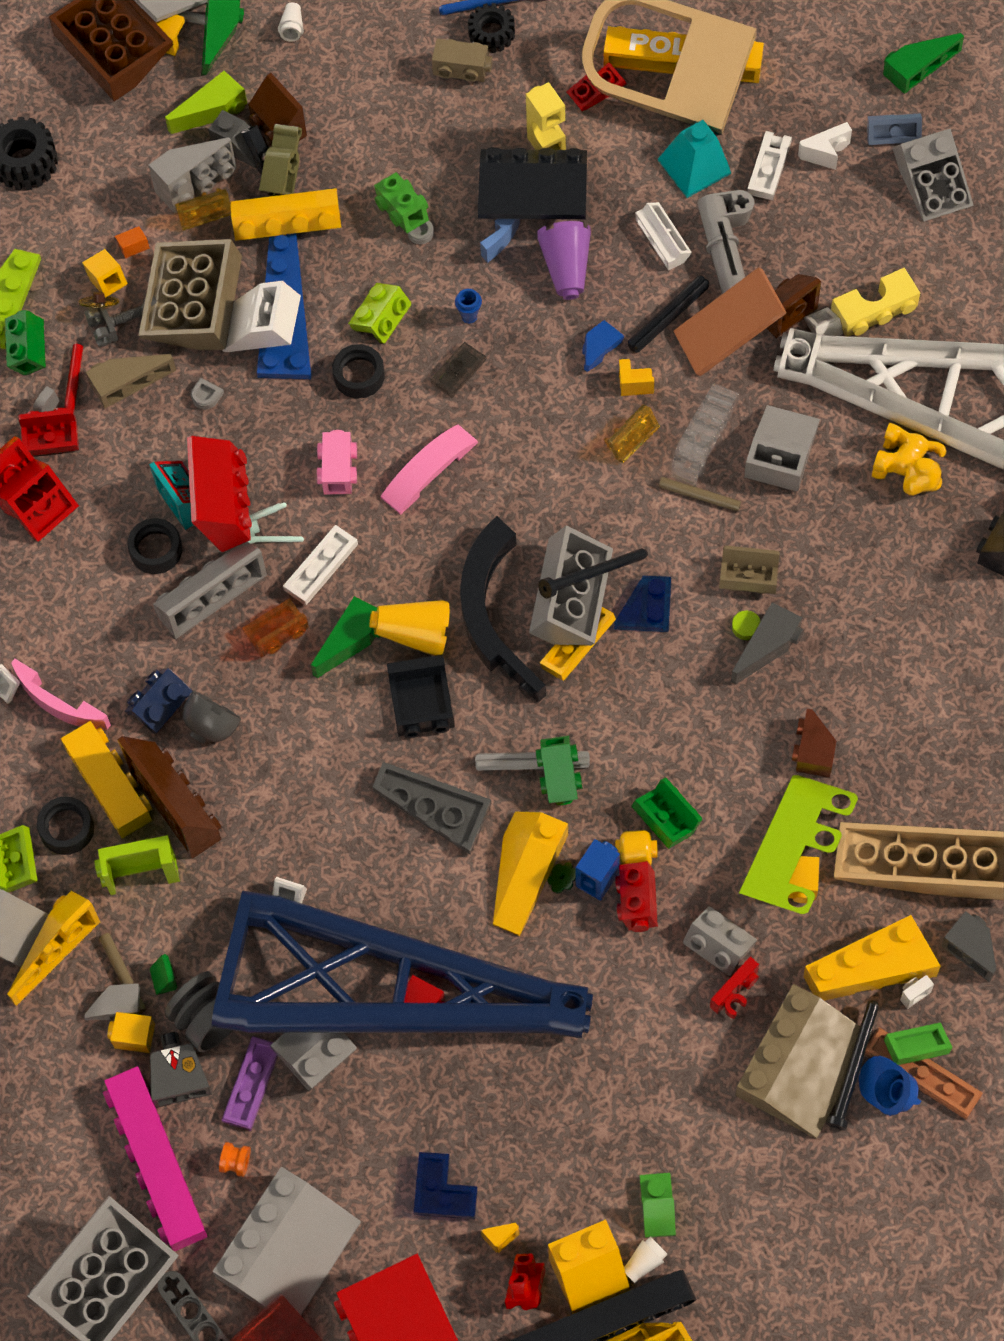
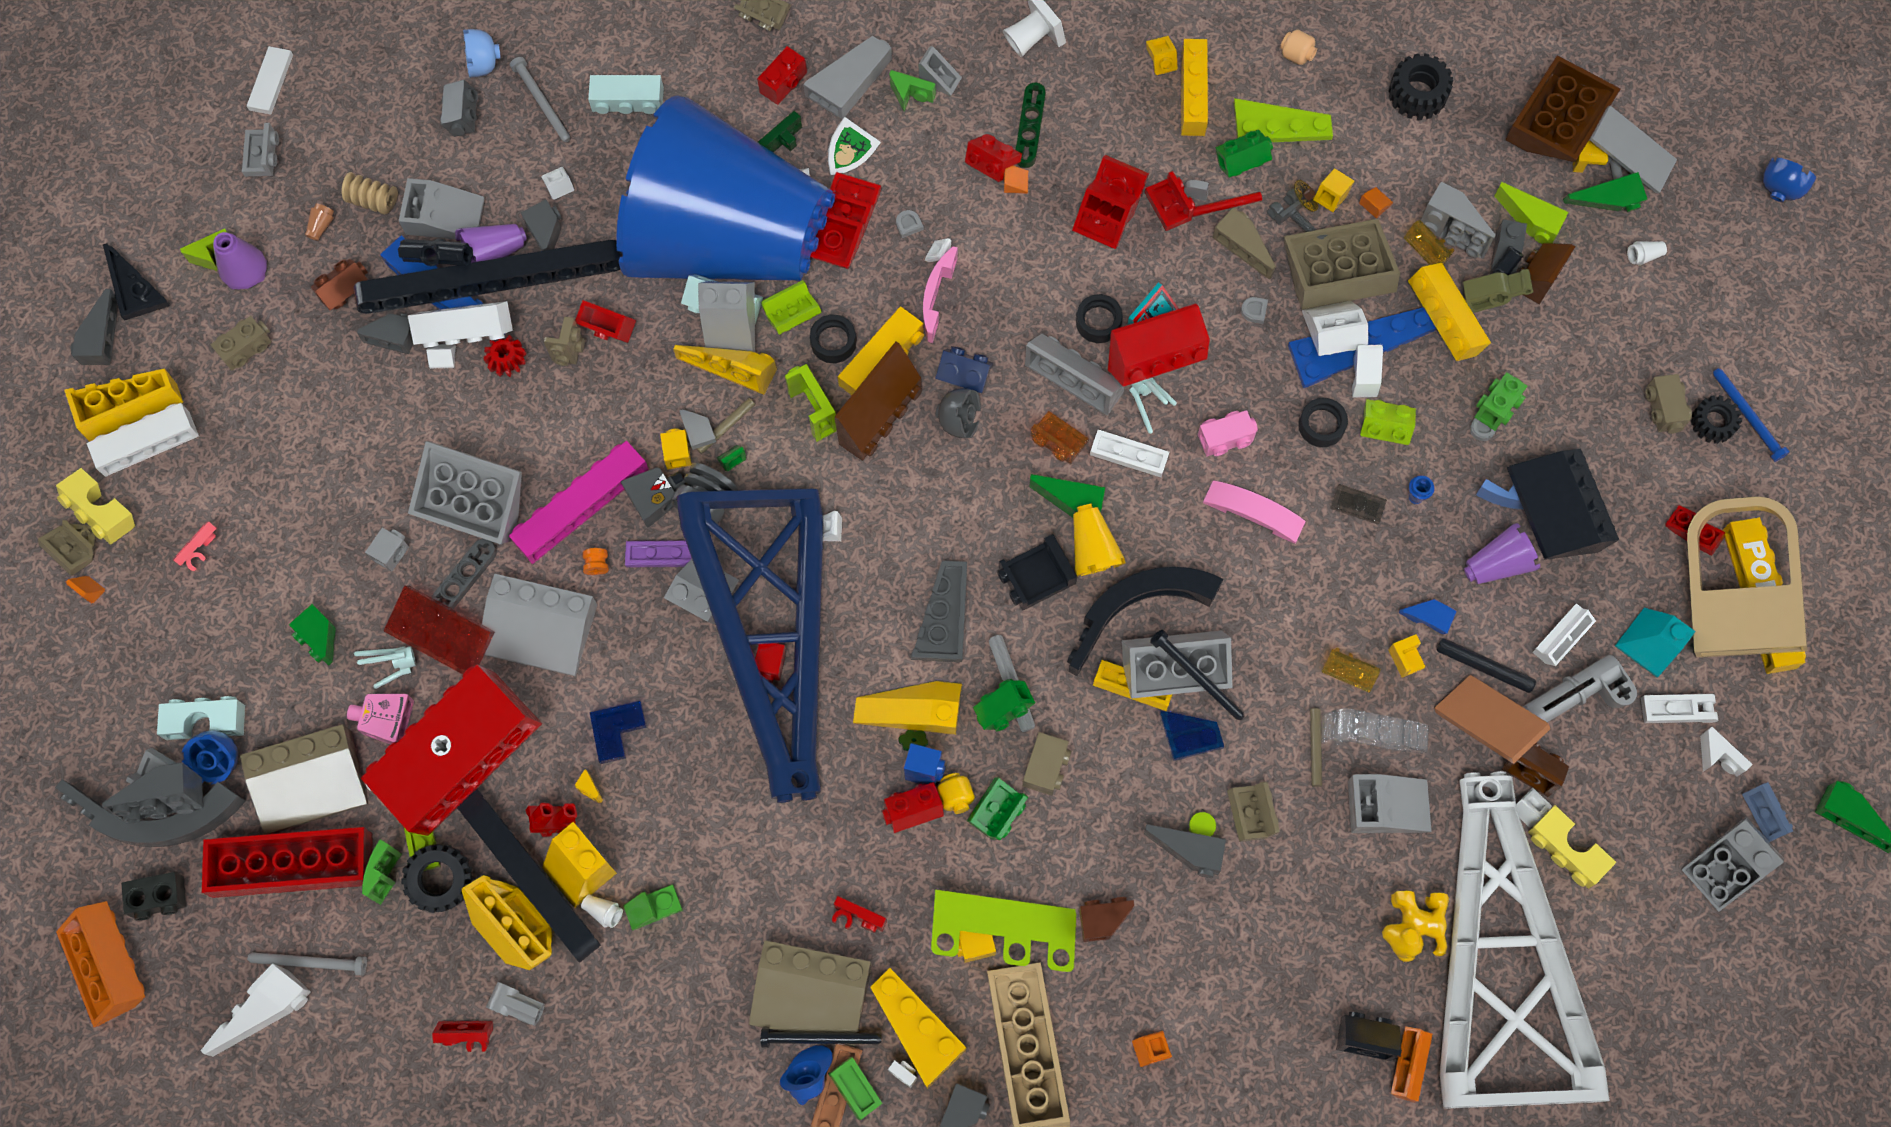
camera: 70 degrees right, 5 degrees up
(322, 306) = (1367, 370): none -> white slope
(543, 115) = (1631, 492): light yellow arch -> none
(633, 751) = (1045, 764): none -> dark tan brick
(719, 940) = (899, 889): light grey bracket -> none
(958, 746) = (1151, 1048): none -> orange slope

